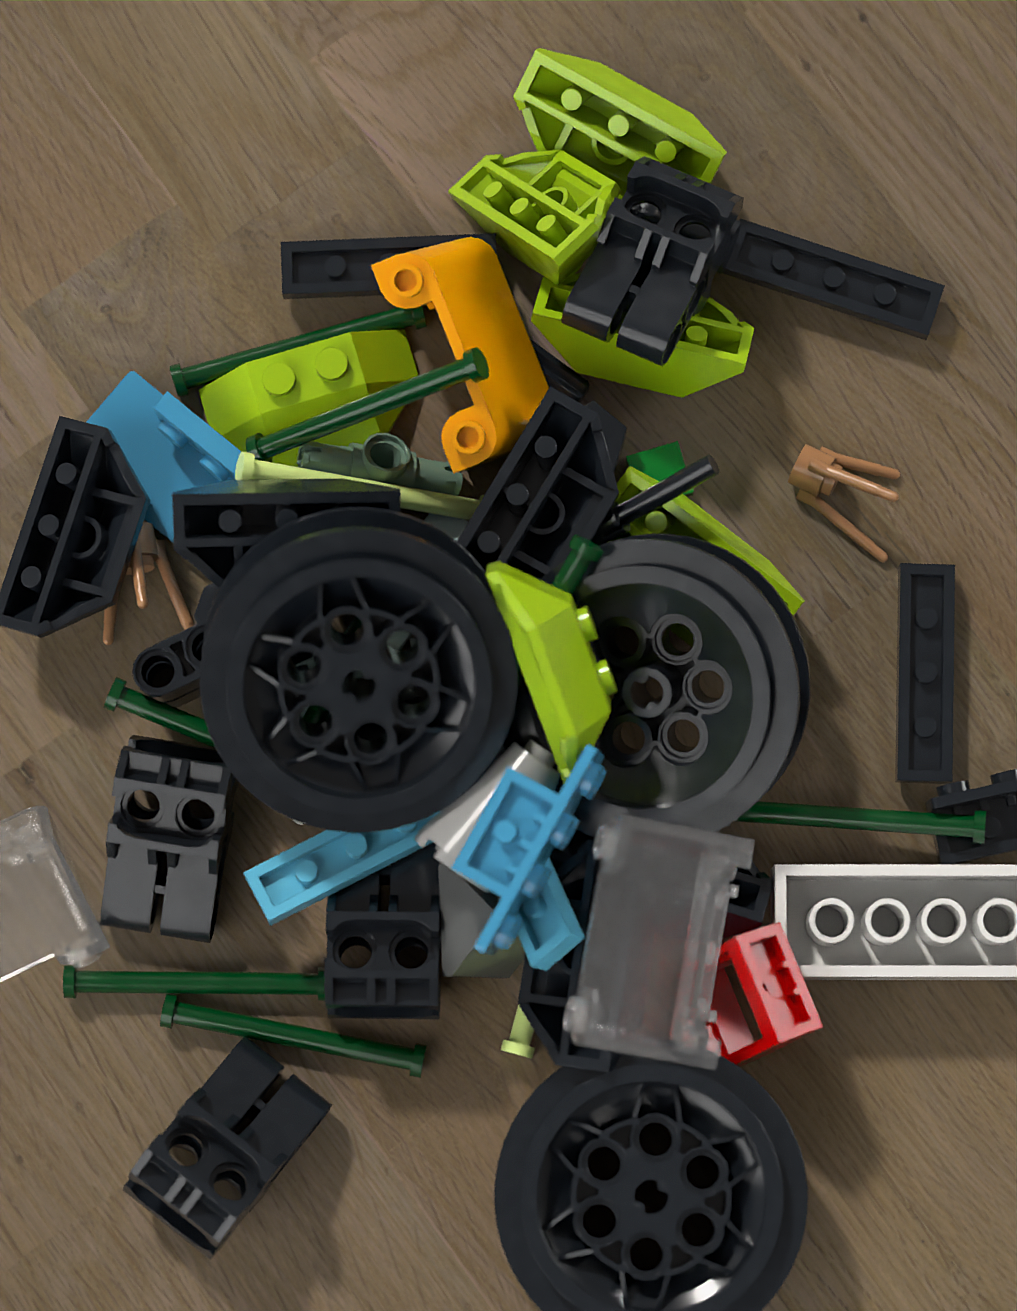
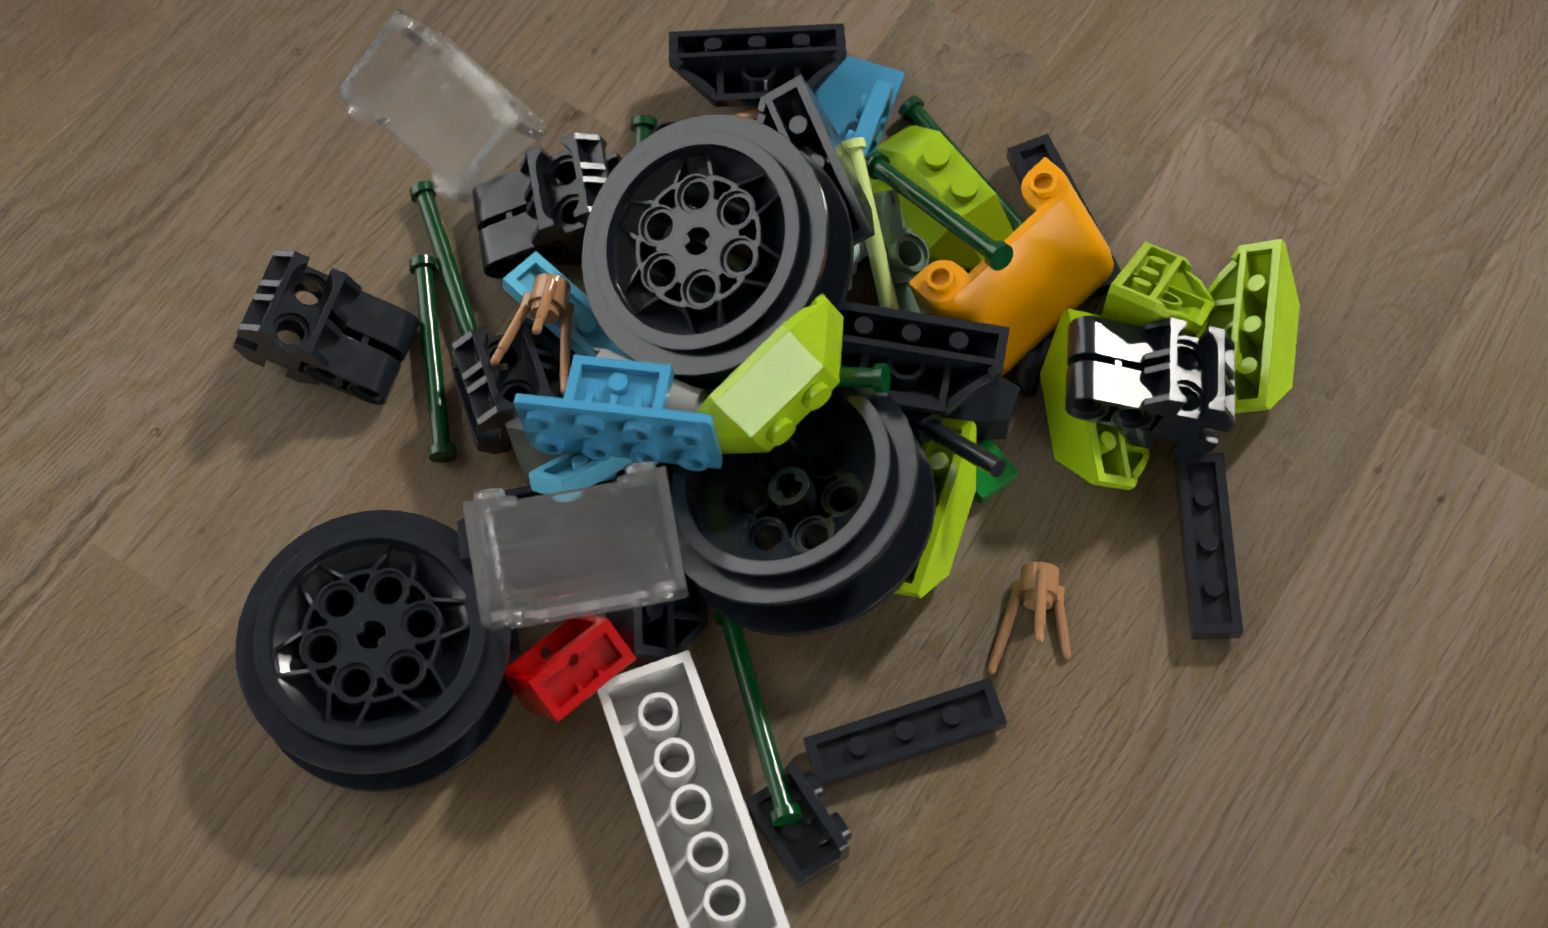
camera: 70 degrees right, 15 degrees down
(329, 876) = (546, 304): none -> medium nougat plant

